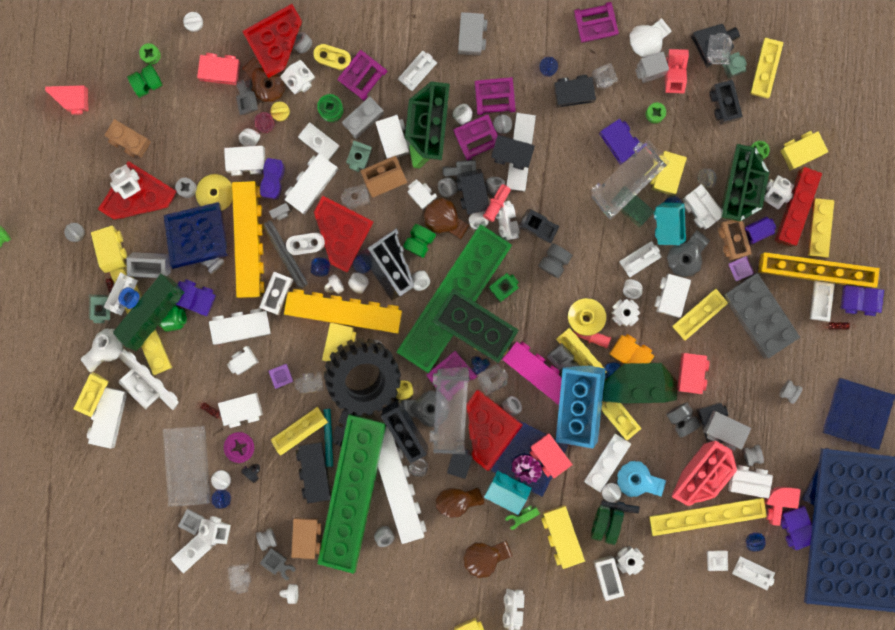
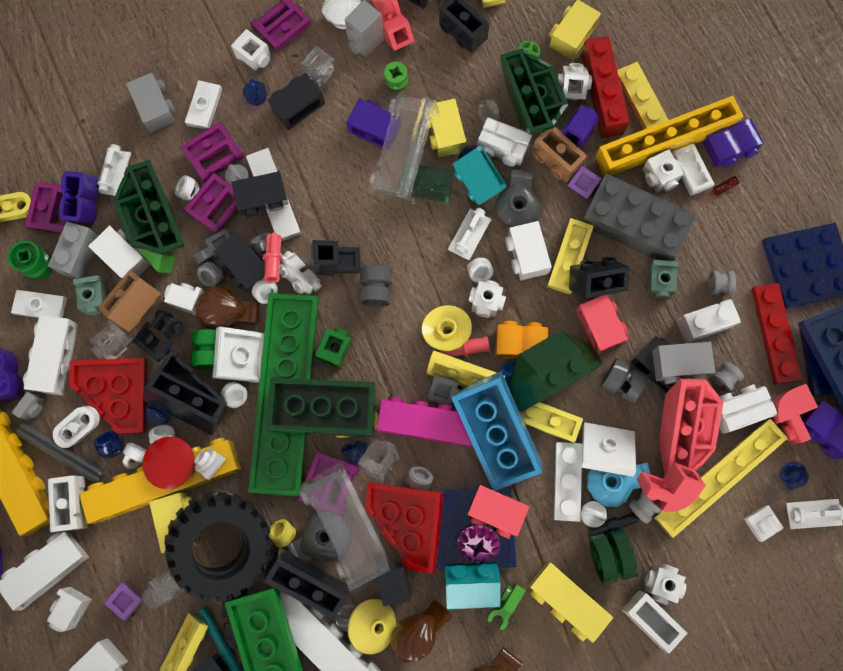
camera: 25 degrees left, 10 degrees down
(356, 305) = (168, 463): none -> red dish
(382, 319) = (208, 462): none -> white plate
(383, 86) = (78, 198): none -> dark purple brick
(385, 214) = (156, 336): none -> black plate
(426, 476) = (363, 622): none -> light yellow dish
(438, 256) = (238, 354): none -> white plate
(506, 55) = (203, 105): none -> white plate
(560, 28) = (251, 50): none -> white brick
(645, 457) = (608, 449): none -> white plate
(647, 507) = (645, 508): none -> light grey wheel
(672, 507) = (674, 491): none -> coral brick
(708, 342) = (599, 277): none -> black brick
(751, 358) = (655, 285): none -> sand green brick
(764, 412) = (708, 321): none -> white brick
(805, 290) = (663, 172): none -> white brick
(806, 445) = (776, 334): none -> red plate

